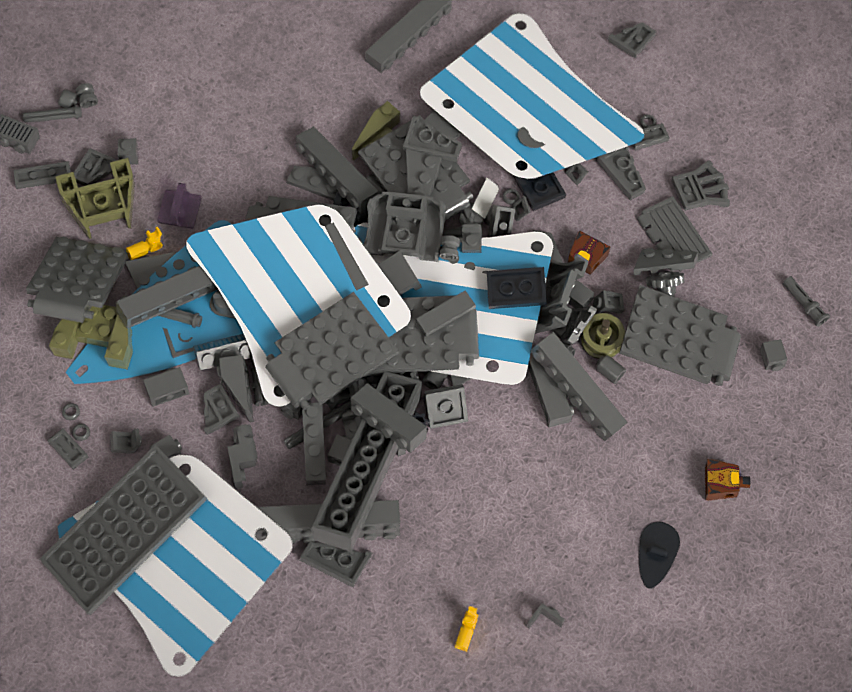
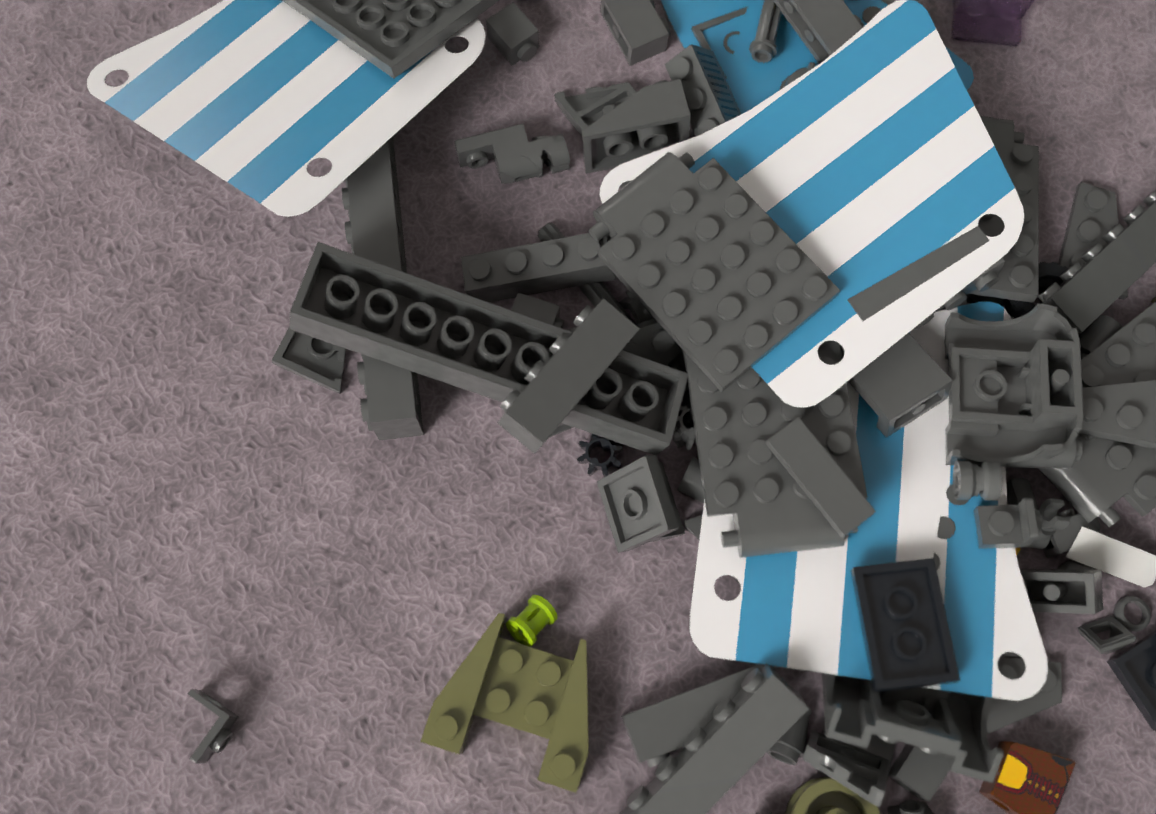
camera: 85 degrees right, 10 degrees up
(466, 632) = (187, 573): yellow bar -> none
(501, 461) = (531, 620): none -> lime bush
(536, 466) = (521, 691): none -> olive wedge

